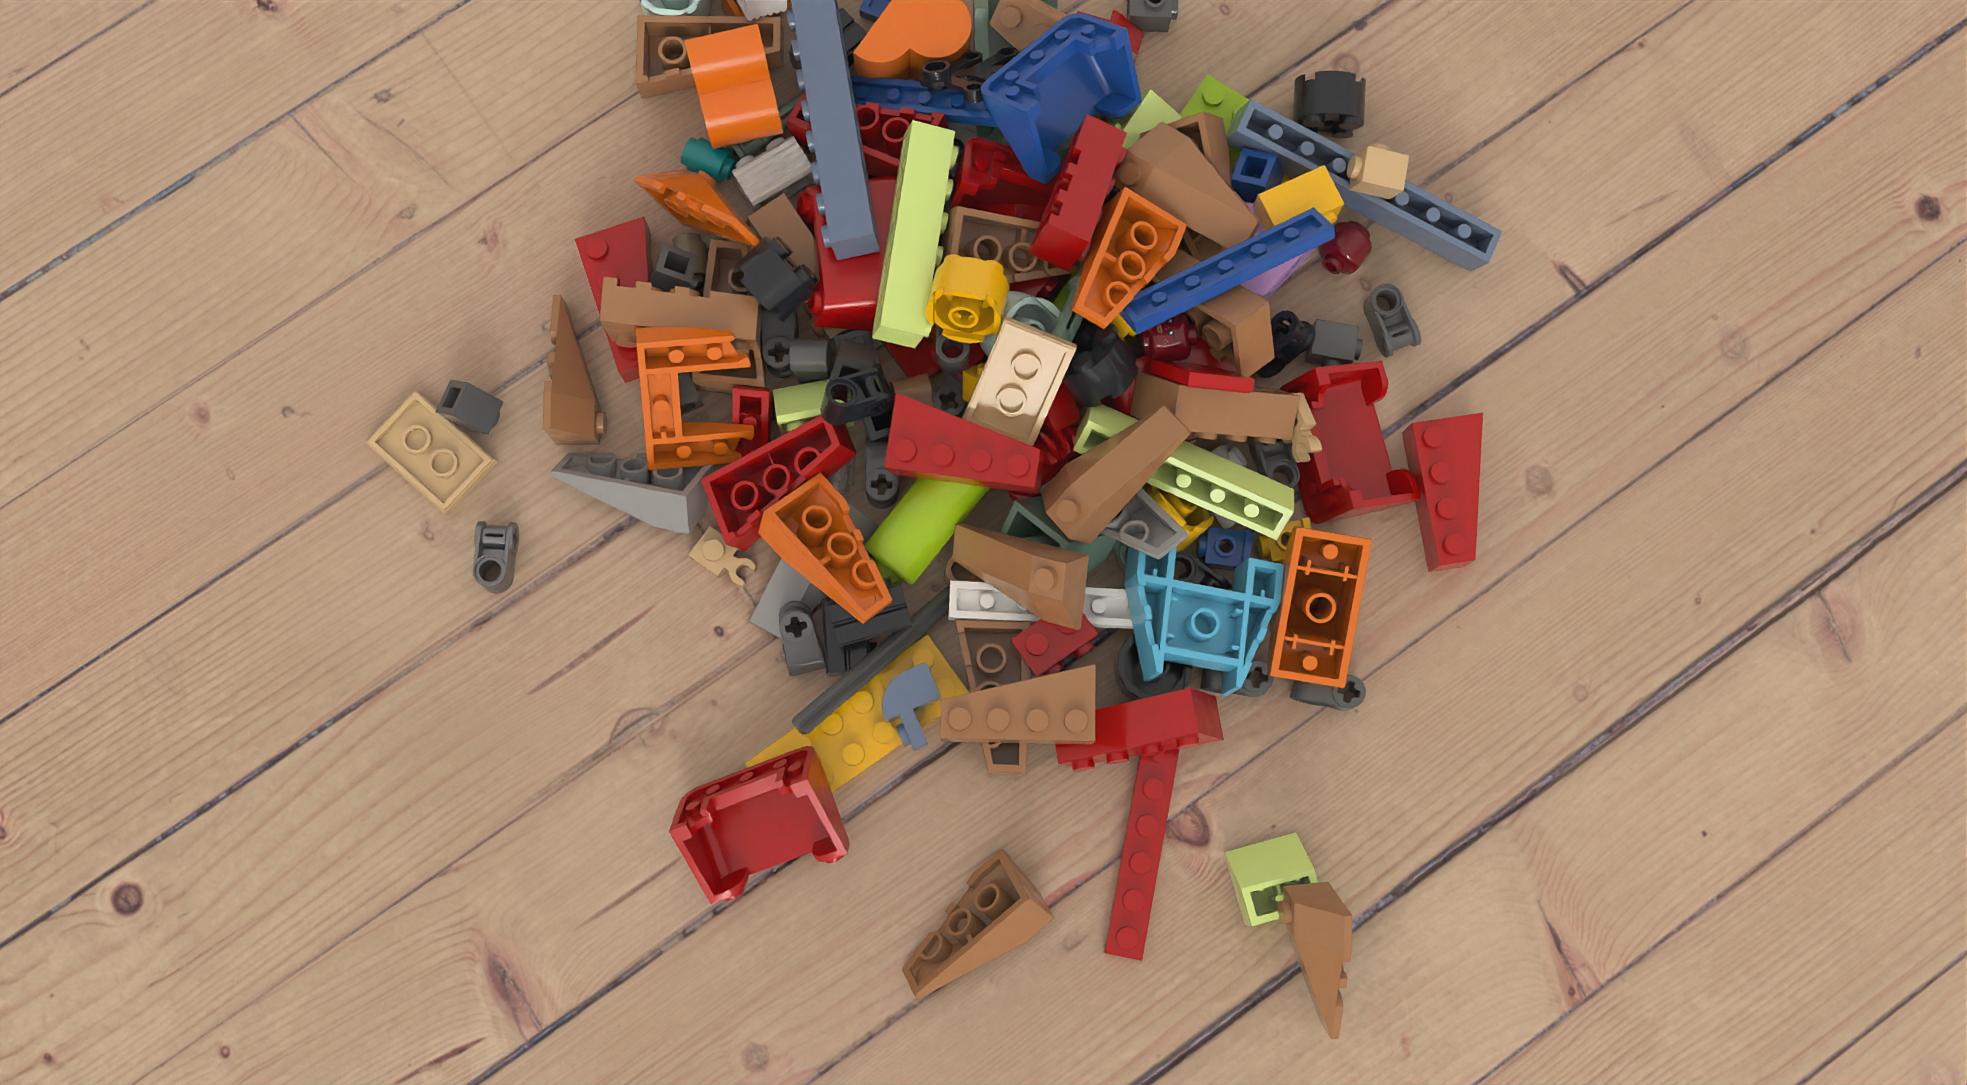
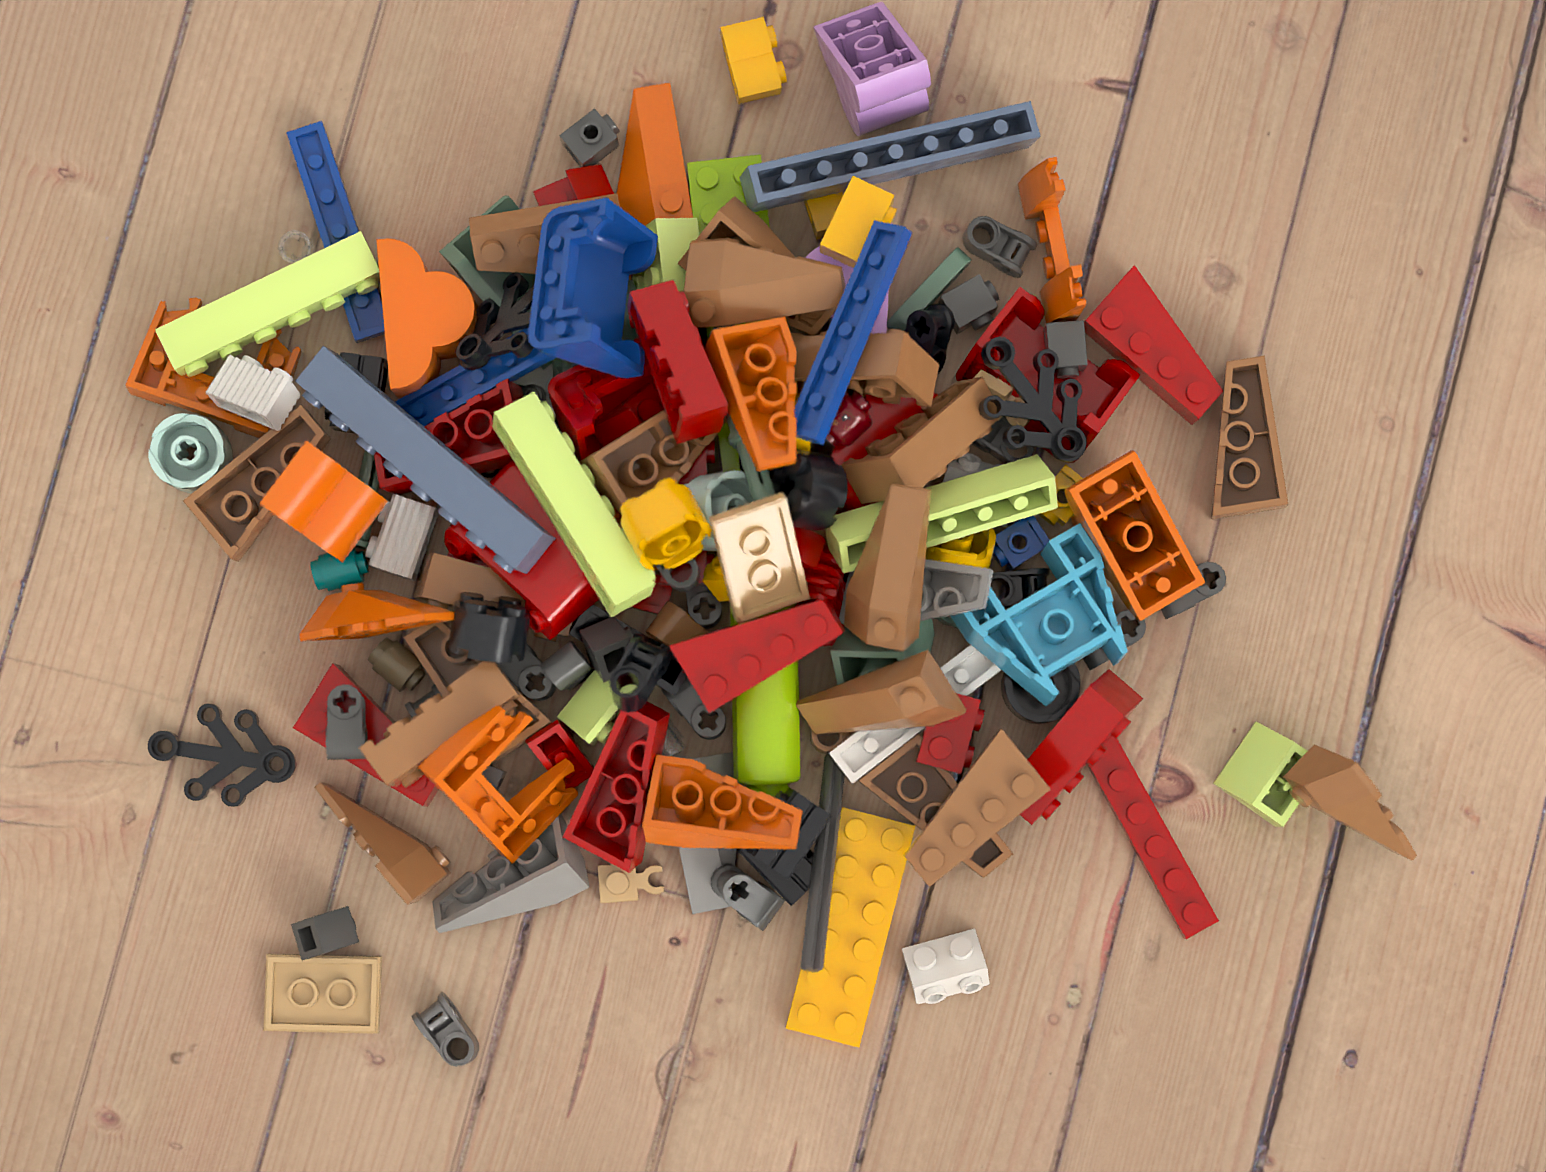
camera: 35 degrees left, 5 degrees up
(514, 228) = (230, 756): none -> black plant
(610, 261) = (345, 730): none -> dark grey piece
(674, 268) = (400, 691): dark grey brick -> none
(758, 822) = (836, 1065): red windscreen -> none
(903, 819) = (946, 967): none -> white bracket
(907, 694) = (869, 872): sand blue brick -> none
(988, 921) = (1076, 990): medium nougat wedge -> none
(1187, 55) = (652, 163): none -> orange wedge
(1202, 376) = (897, 431): red tile -> none
(1255, 174) = (800, 220): blue brick -> none
(1317, 42) = (751, 59): none -> yellow brick
(1323, 449) = (1037, 403): none -> black plant
(1329, 309) = (931, 288): none -> sand green beam
(1330, 102) = (804, 104): black brick -> none
(1347, 249) = (917, 212): dark red head -> none
(1378, 171) = (896, 141): tan brick -> none
(1379, 434) = (1069, 344): none -> dark grey brick
(1407, 114) = (874, 68): none -> lavender brick
(1451, 308) = (1040, 197): none -> orange wedge
(1456, 623) = (1248, 452): none -> medium nougat wedge

